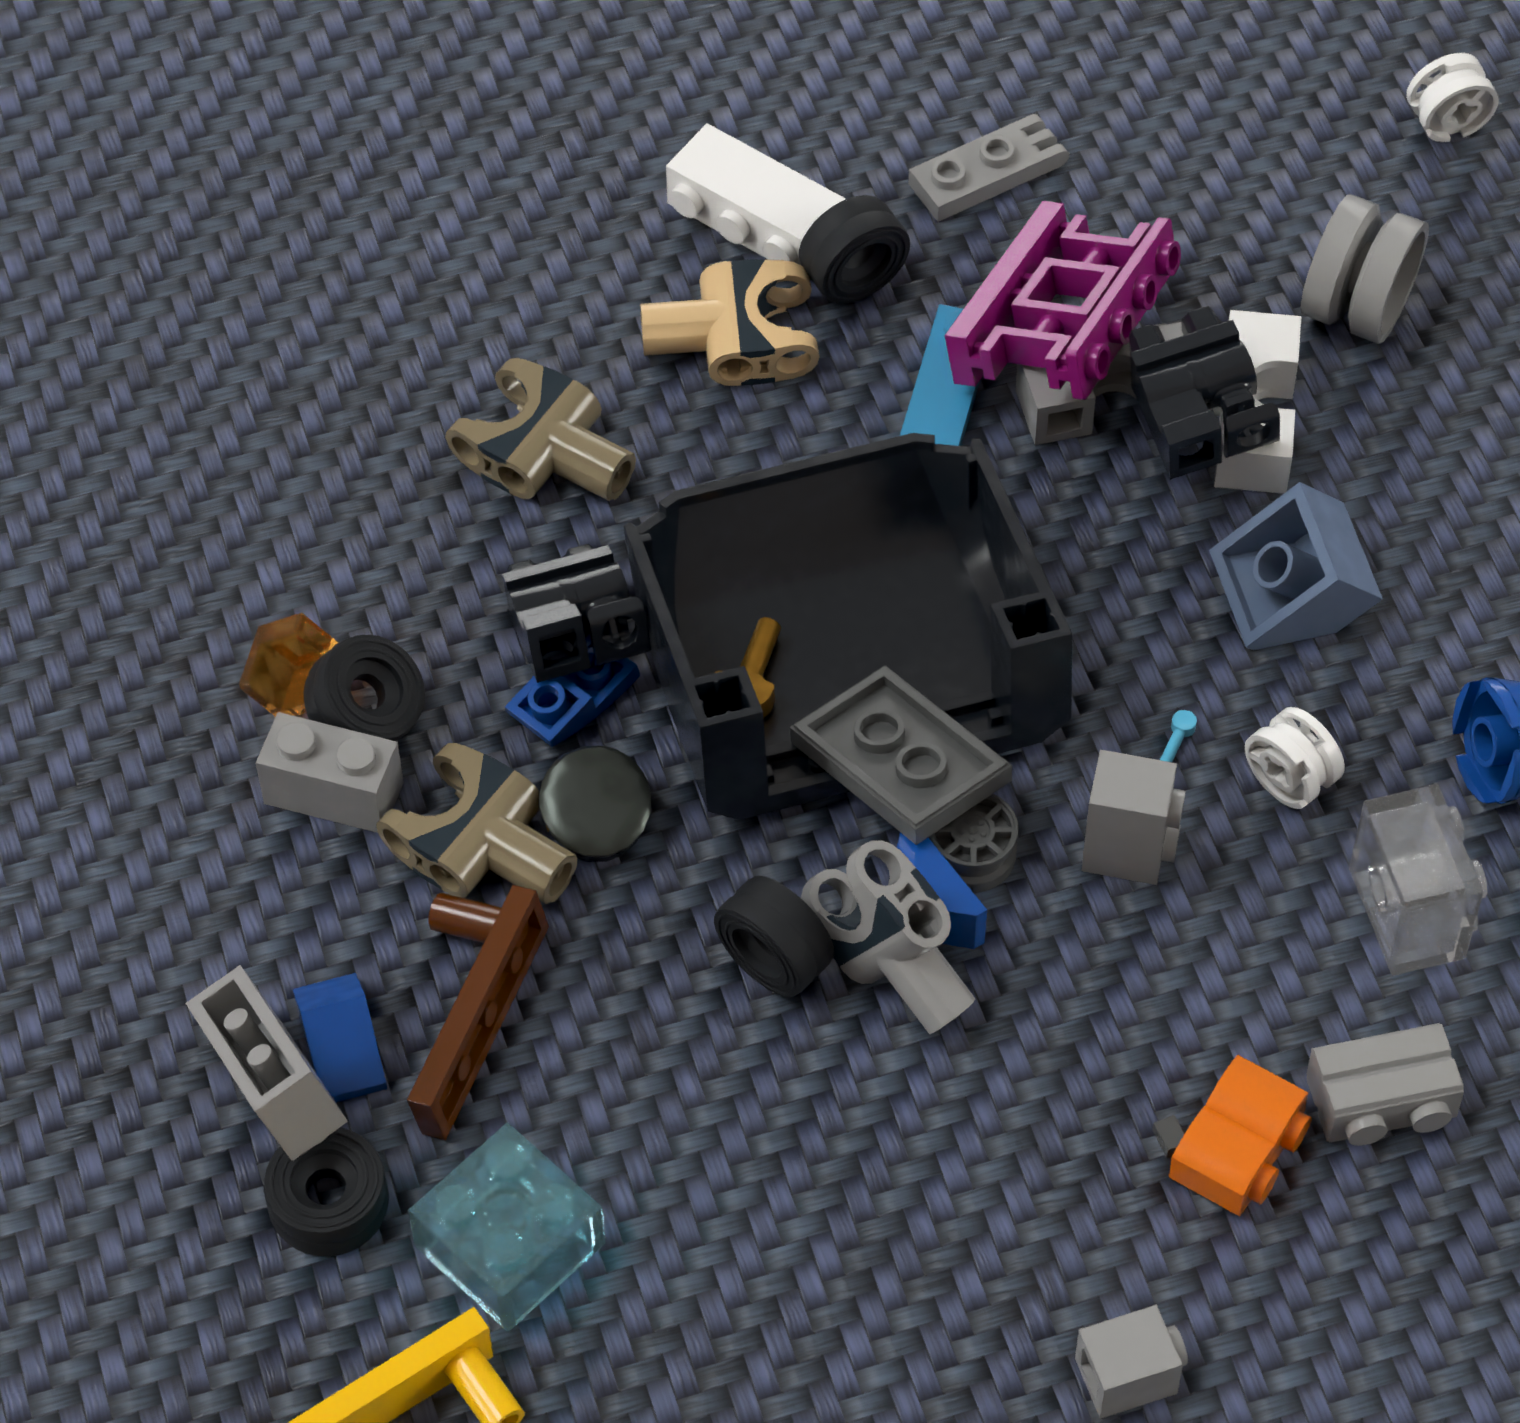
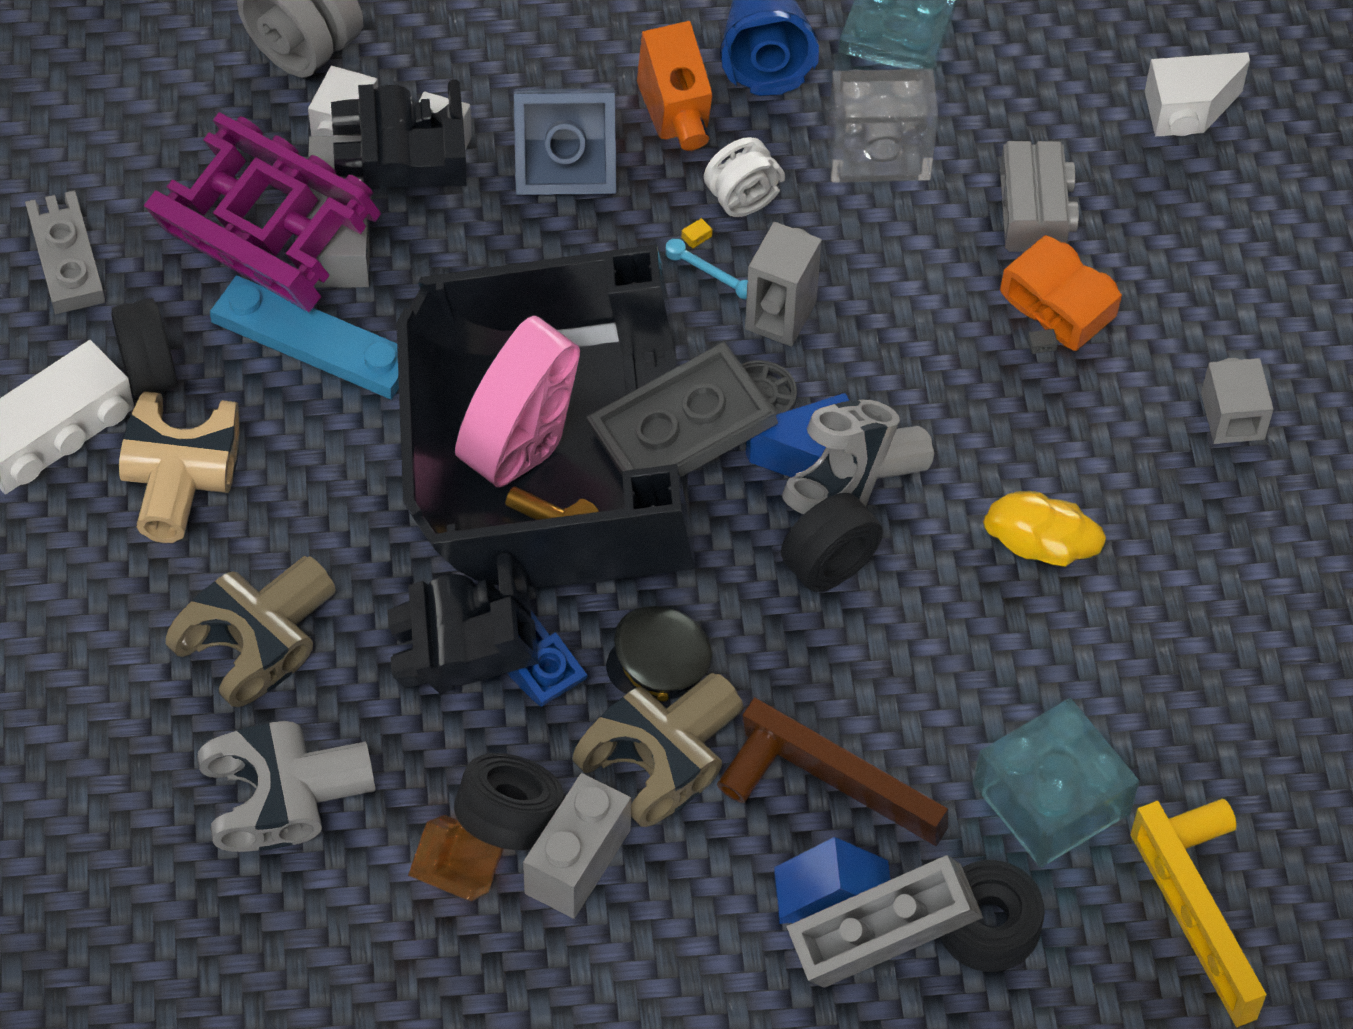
camera: 80 degrees left, 0 degrees up
(360, 507) = (285, 781): none -> light grey connector
(846, 578) = (519, 404): none -> bright pink beam
(878, 1174) = (1044, 528): none -> yellow arm
(1214, 740) = (696, 233): none -> yellow piece
(1404, 657) = (675, 84): none -> orange torso

